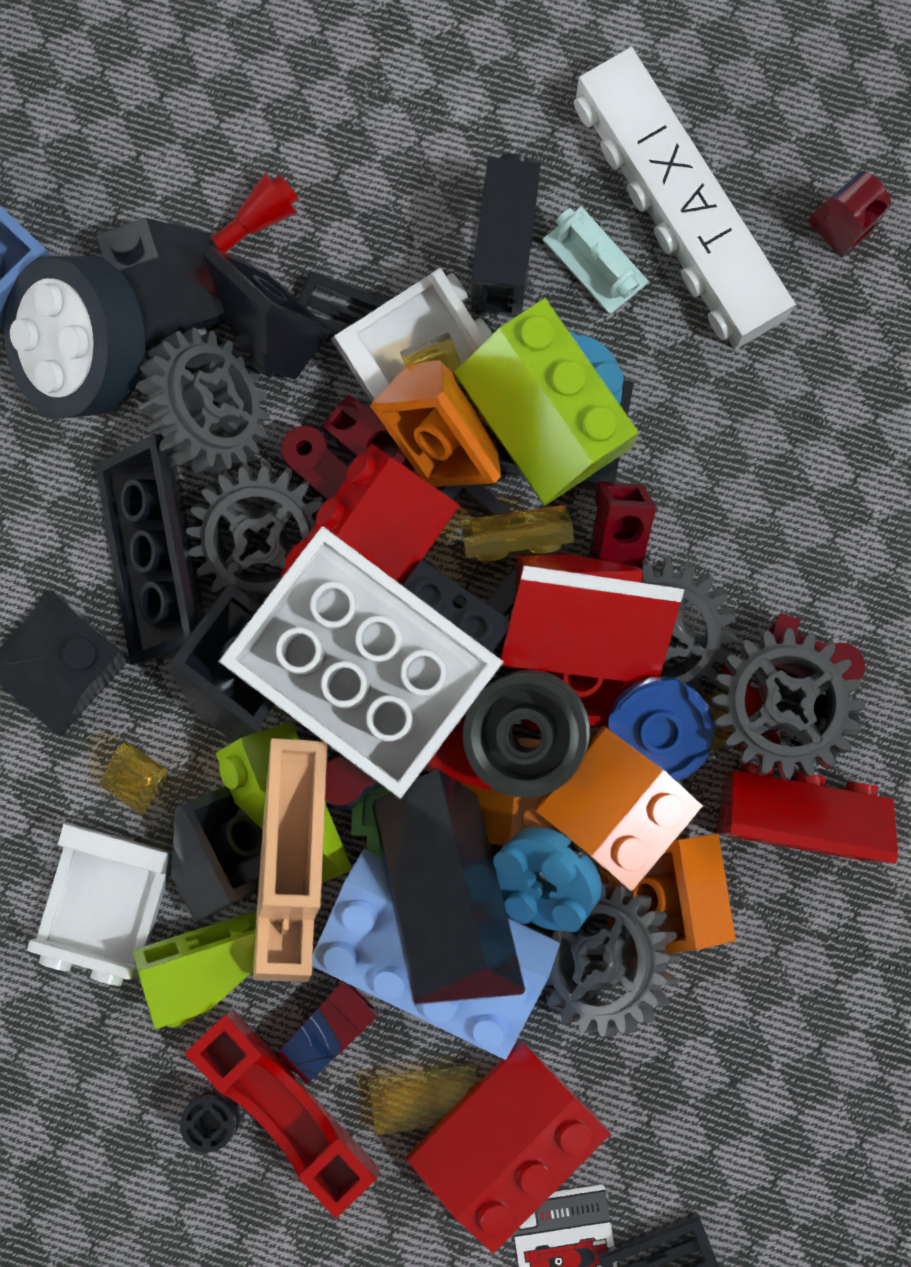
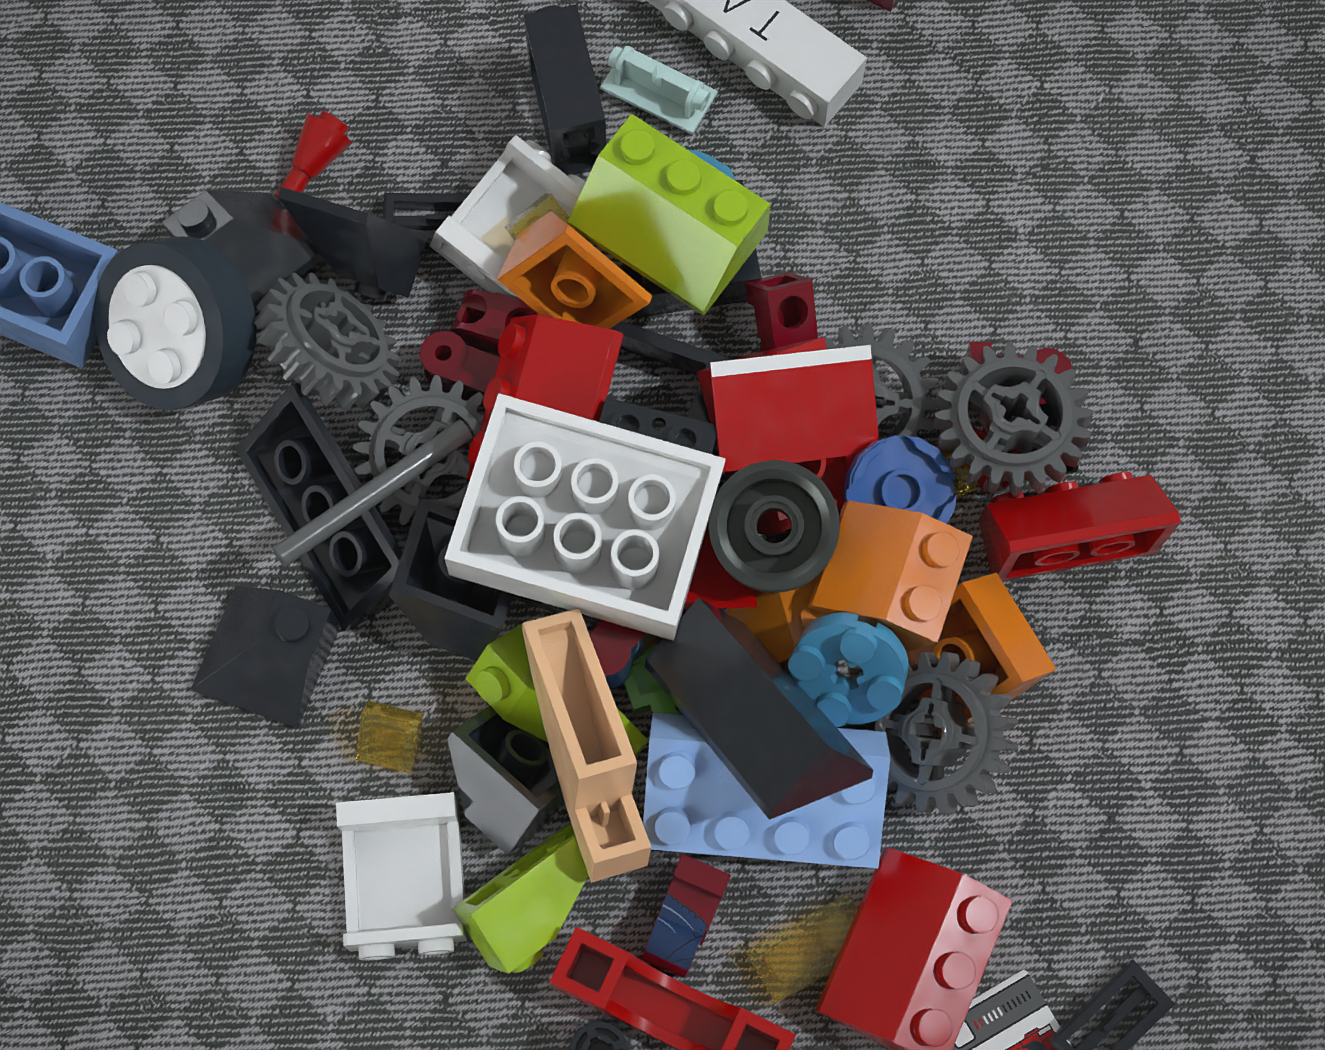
camera: 25 degrees left, 10 degrees down
(188, 564) = (372, 493): none -> dark grey bar
(536, 529) = (706, 342): clear yellow plate -> none

